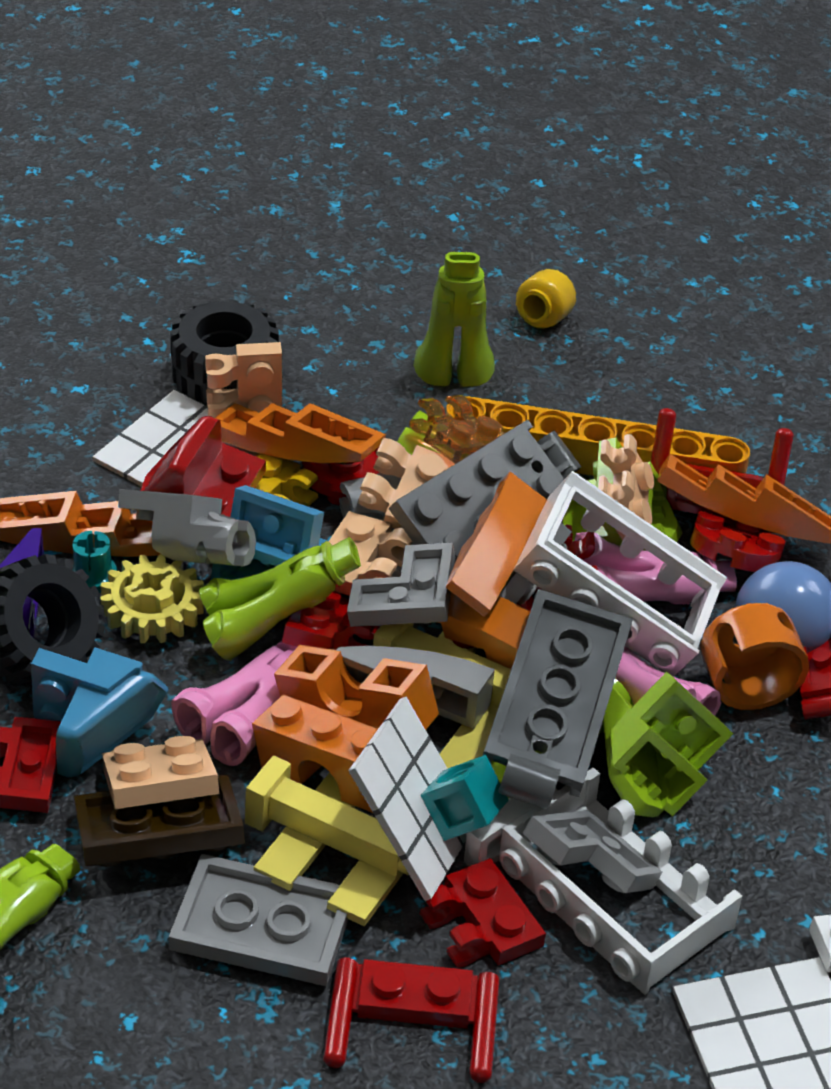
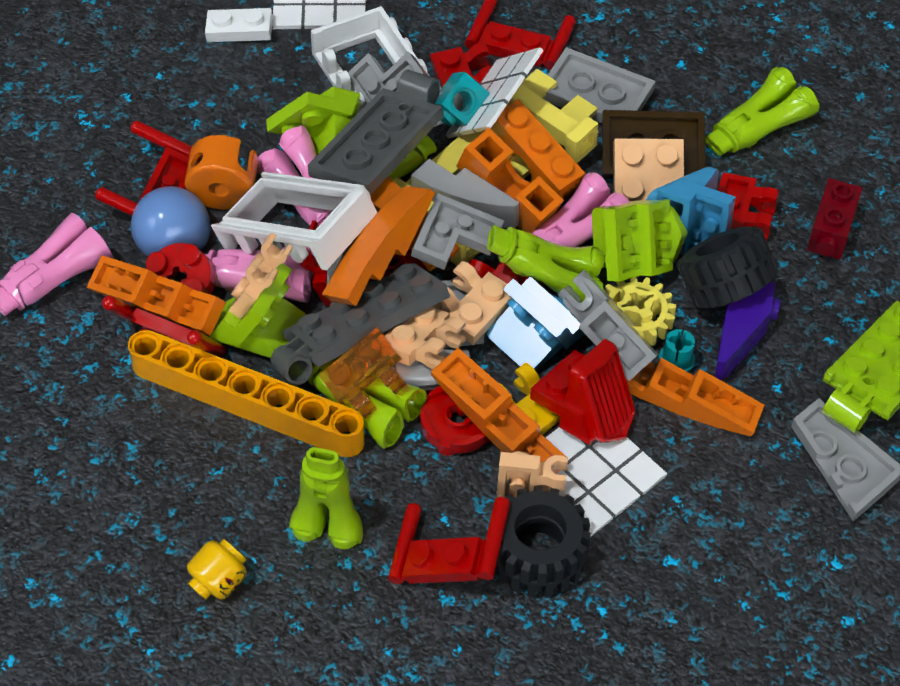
camera: 165 degrees left, 10 degrees up
(164, 647) = (638, 238): none -> lime piece
(320, 319) = (447, 558): none -> red plate

